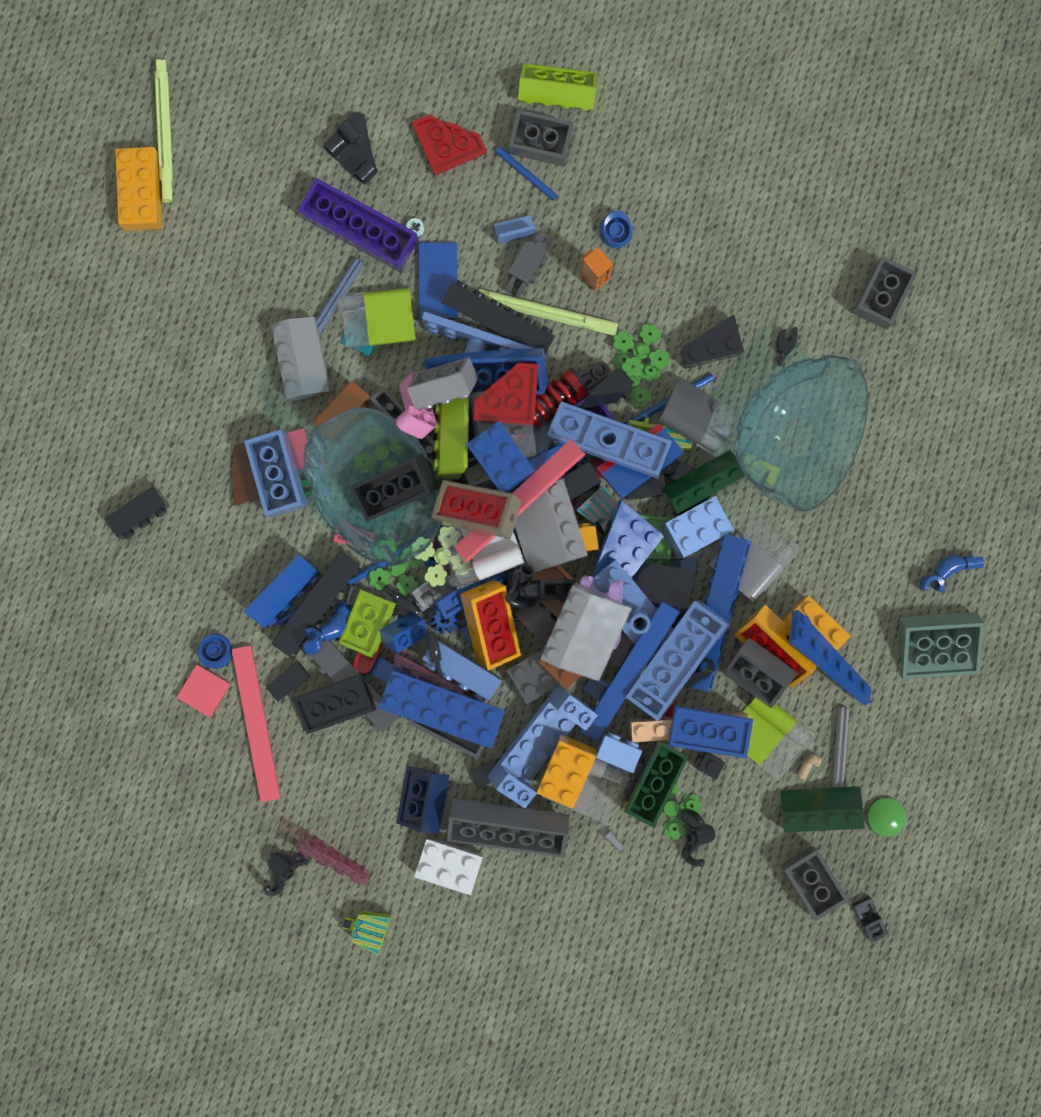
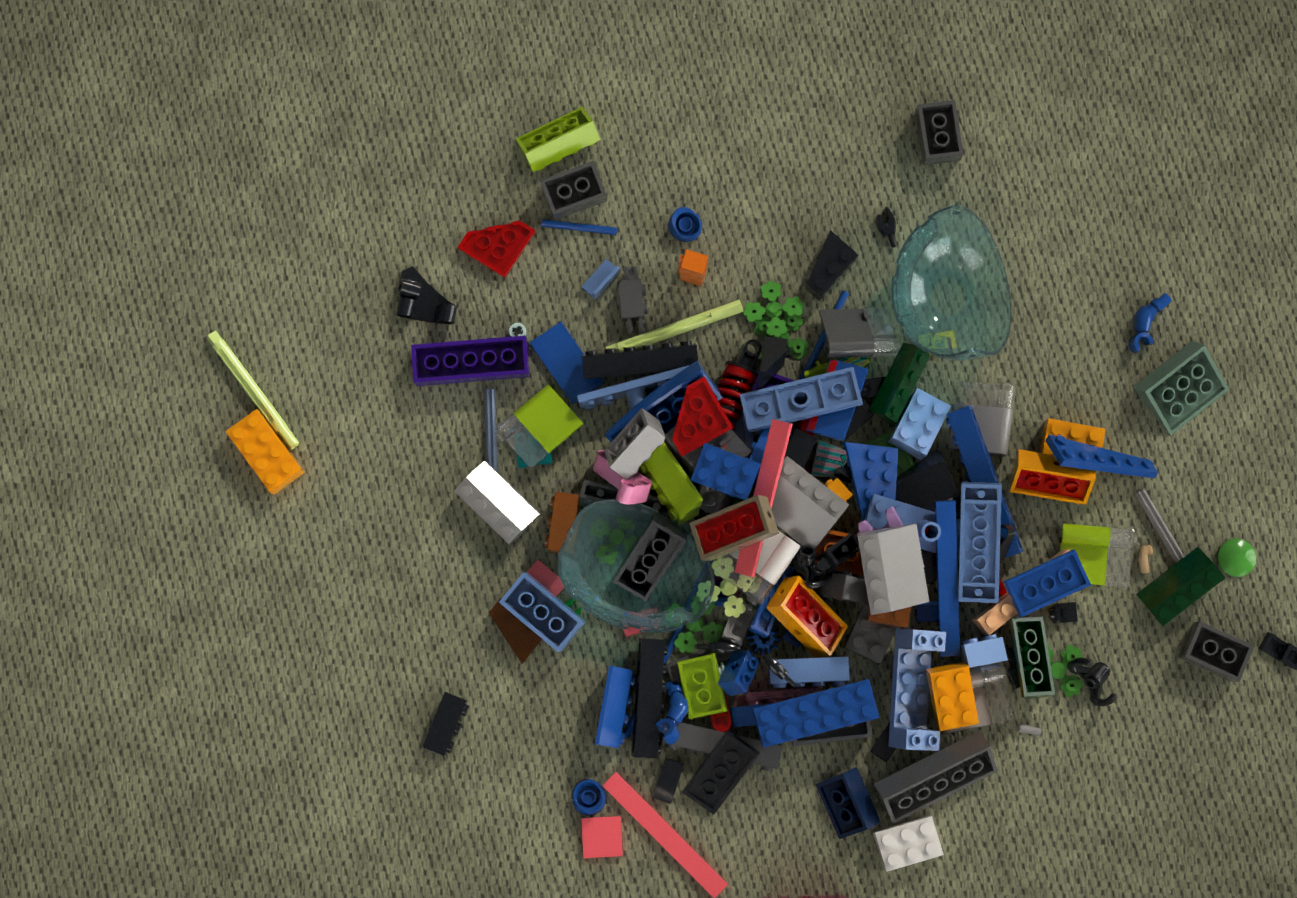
camera: 30 degrees left, 5 degrees down
(760, 672) = (1053, 508): dark grey brick -> none

